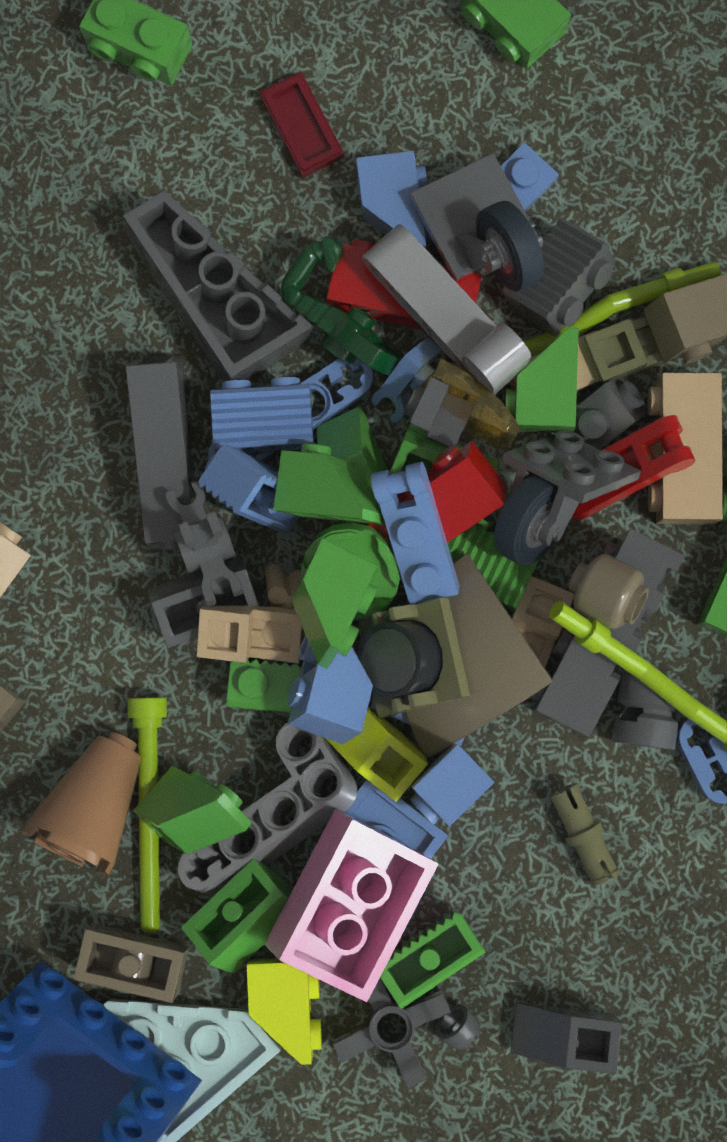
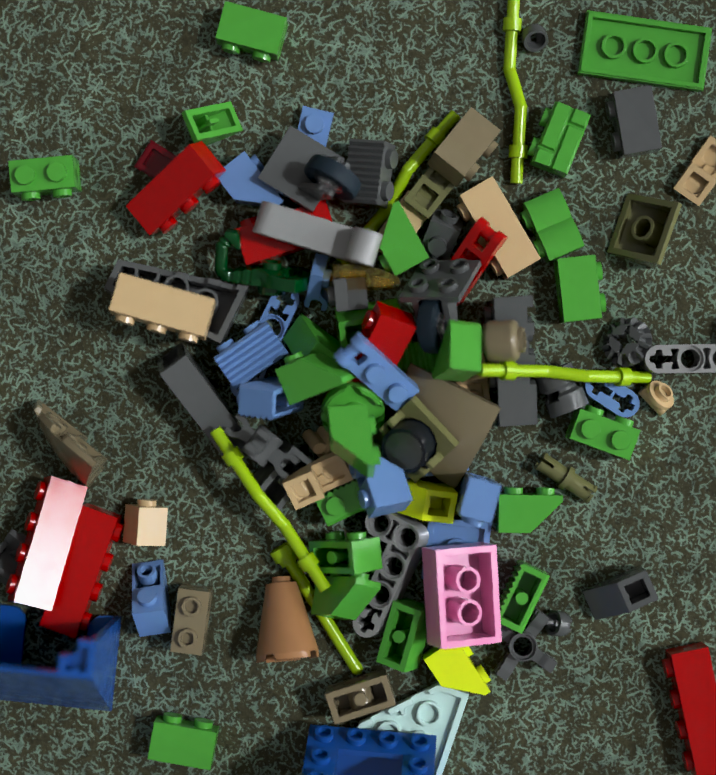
camera: 30 degrees left, 5 degrees up
(156, 536) = (233, 458): none -> lime bar
(182, 282) = (162, 308): none -> tan brick
(226, 757) = (348, 553): none -> bright green brick
(296, 147) = (176, 189): none -> red brick
(391, 94) = (212, 122): none -> bright green slope
(501, 845) = (524, 511): none -> bright green slope
(542, 572) = (459, 352): none -> bright green slope
(669, 803) = (601, 433): none -> bright green brick

